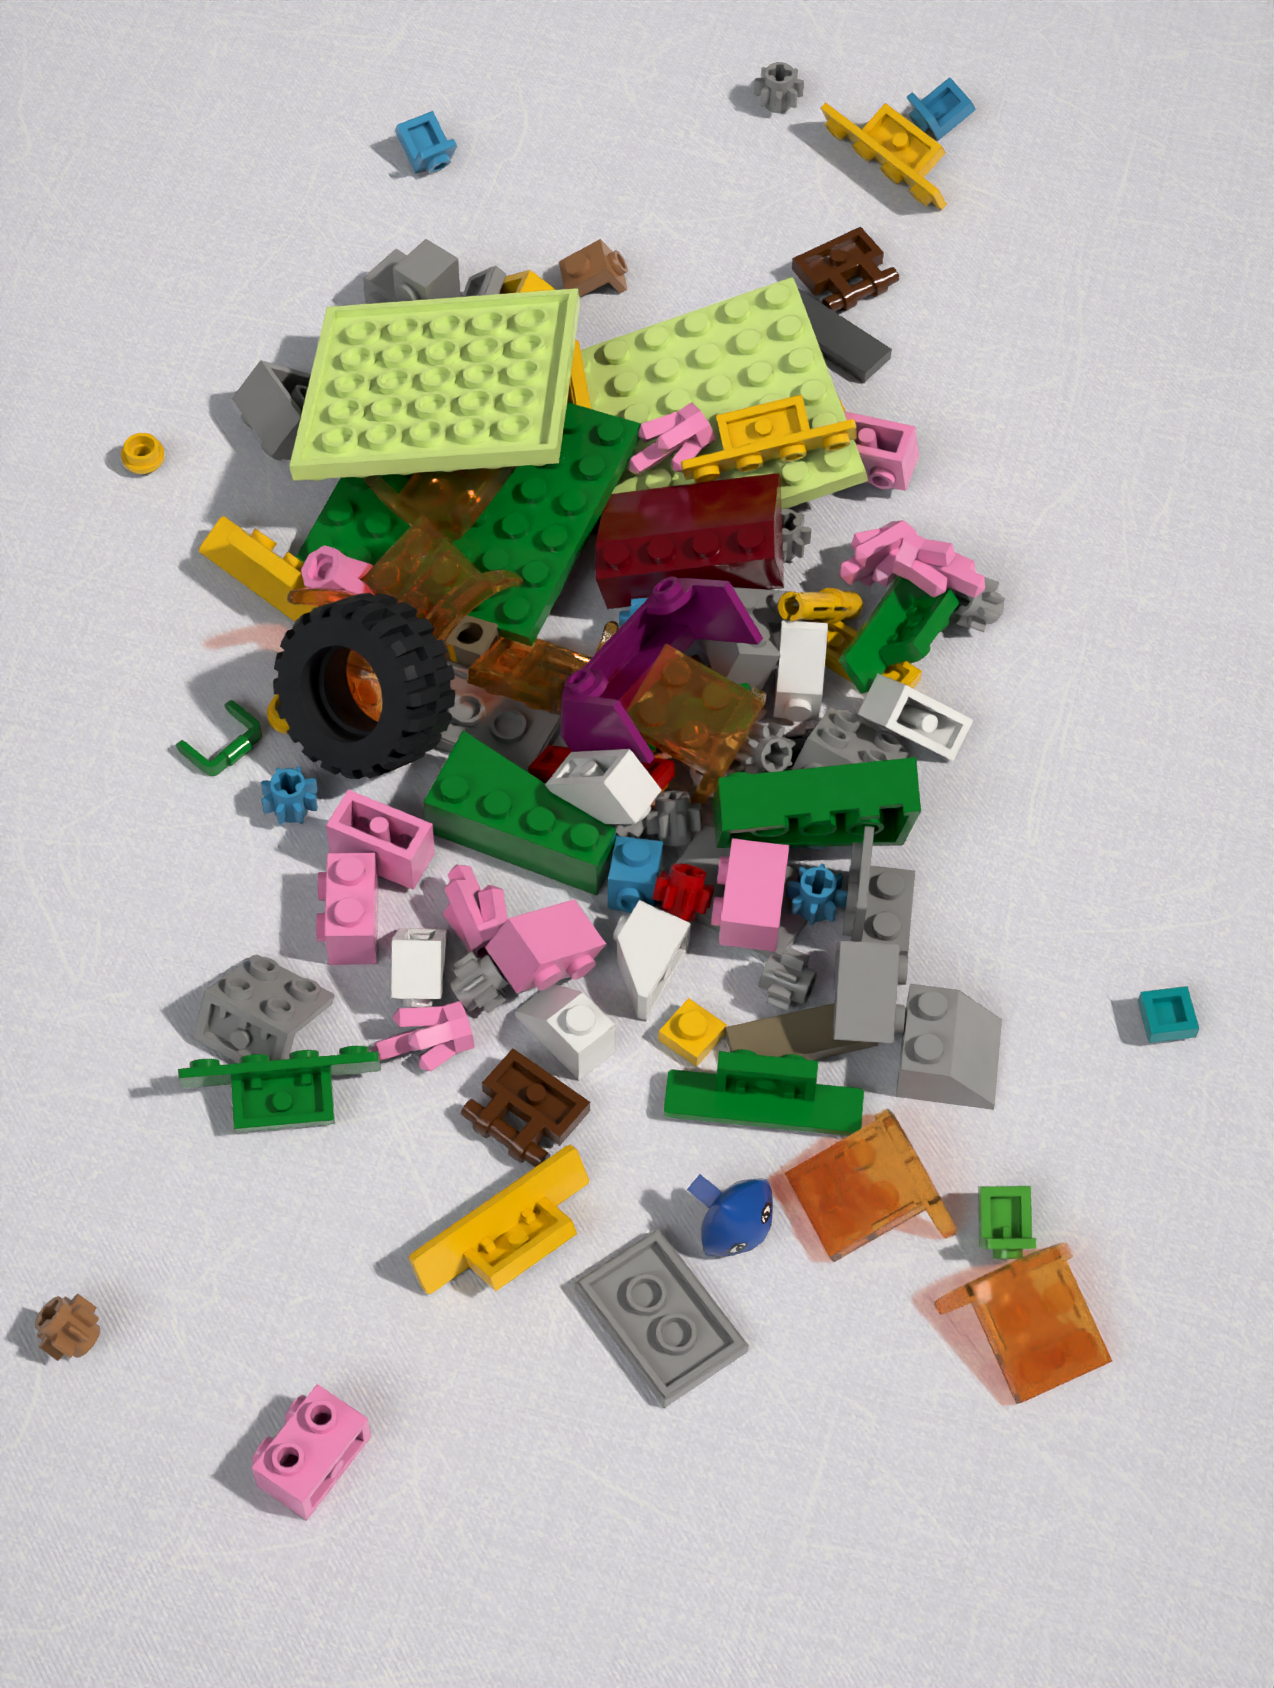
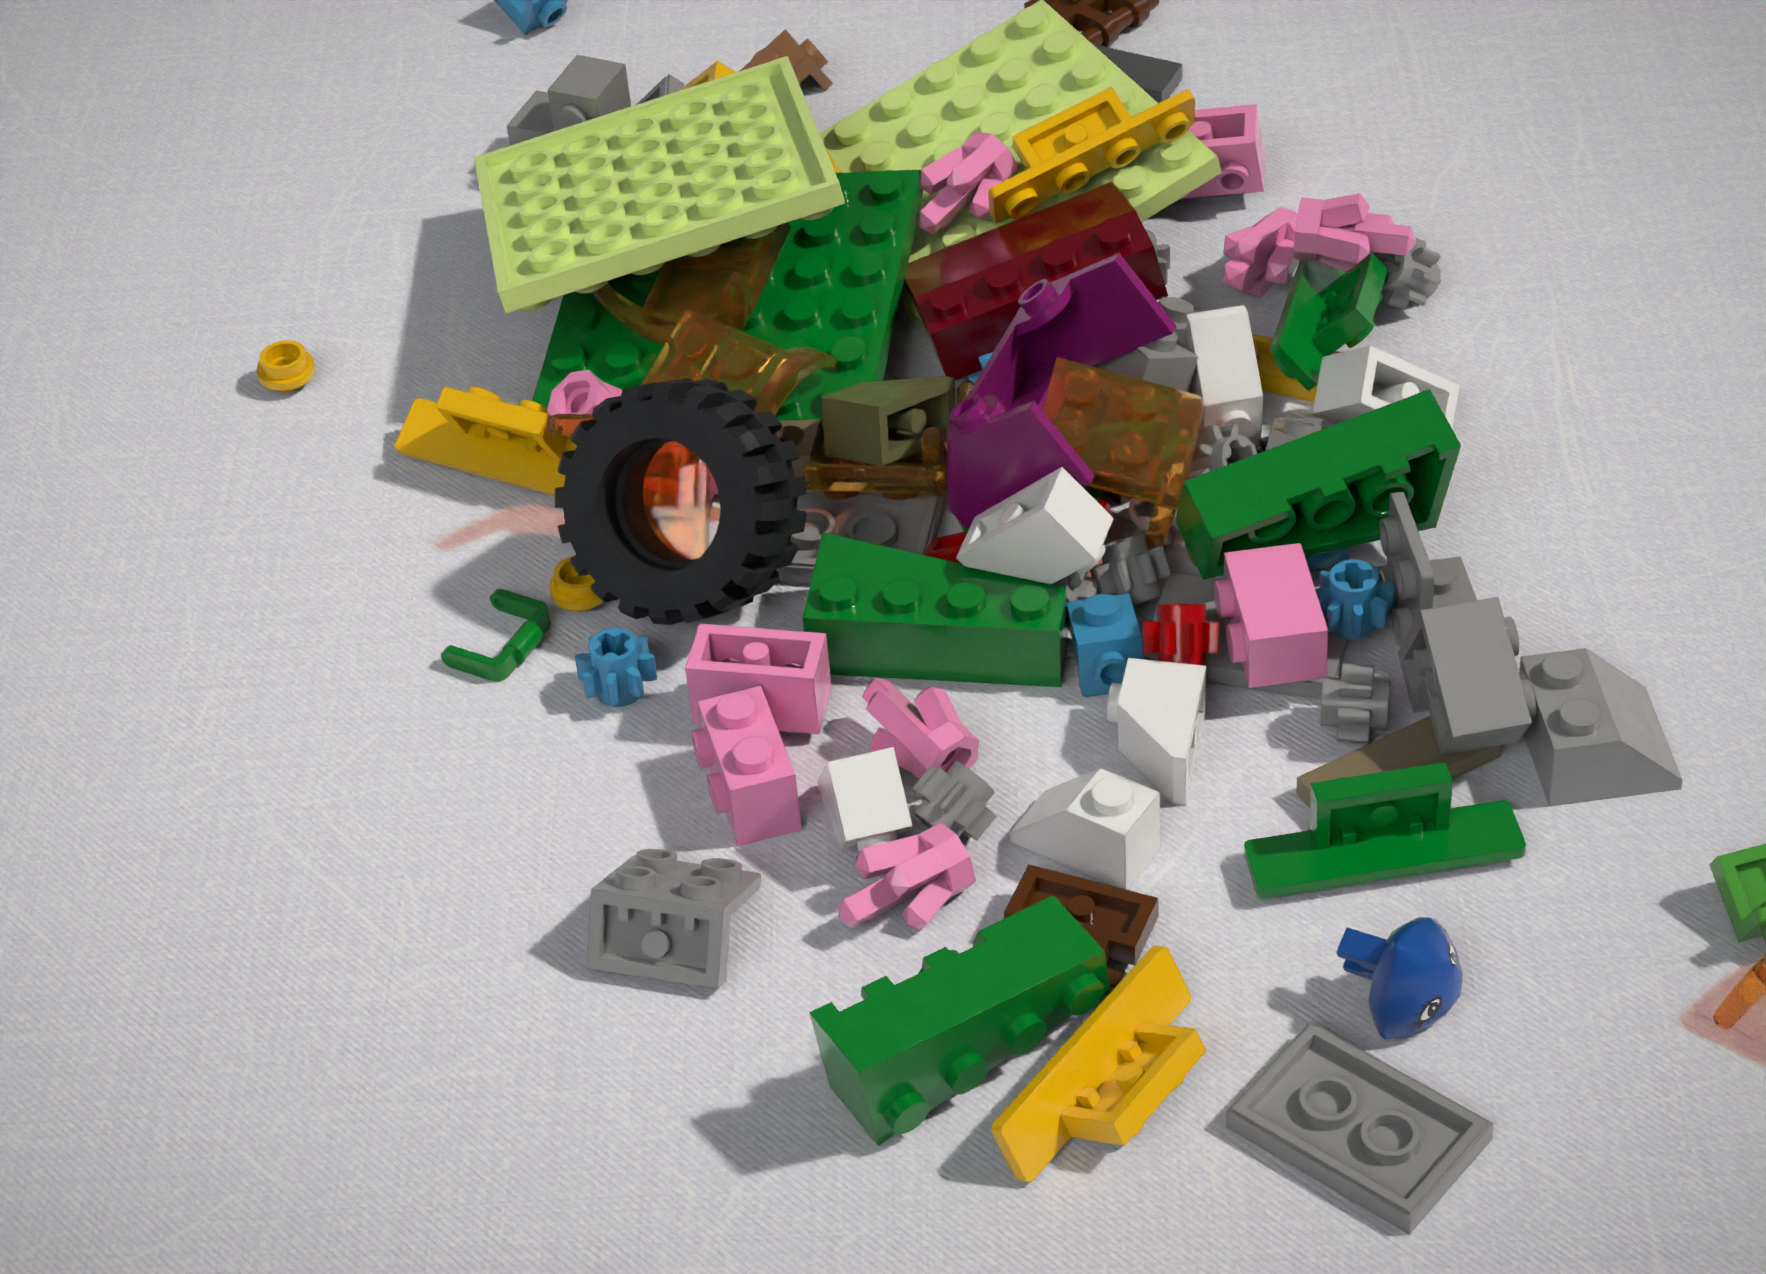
camera: 10 degrees left, 15 degrees down
(273, 406) = (451, 279): light grey slope -> none
(281, 1091) = (735, 984): green bracket -> none
(418, 1165) = (958, 1017): none -> green wedge
(543, 643) = (885, 418): none -> olive slope
(546, 946) = (1027, 735): bright pink brick -> none
(692, 1032) = (1254, 798): yellow plate -> none
(820, 605) = (1217, 296): yellow pin -> none
(867, 1187) = (1568, 901): clear orange piece -> none

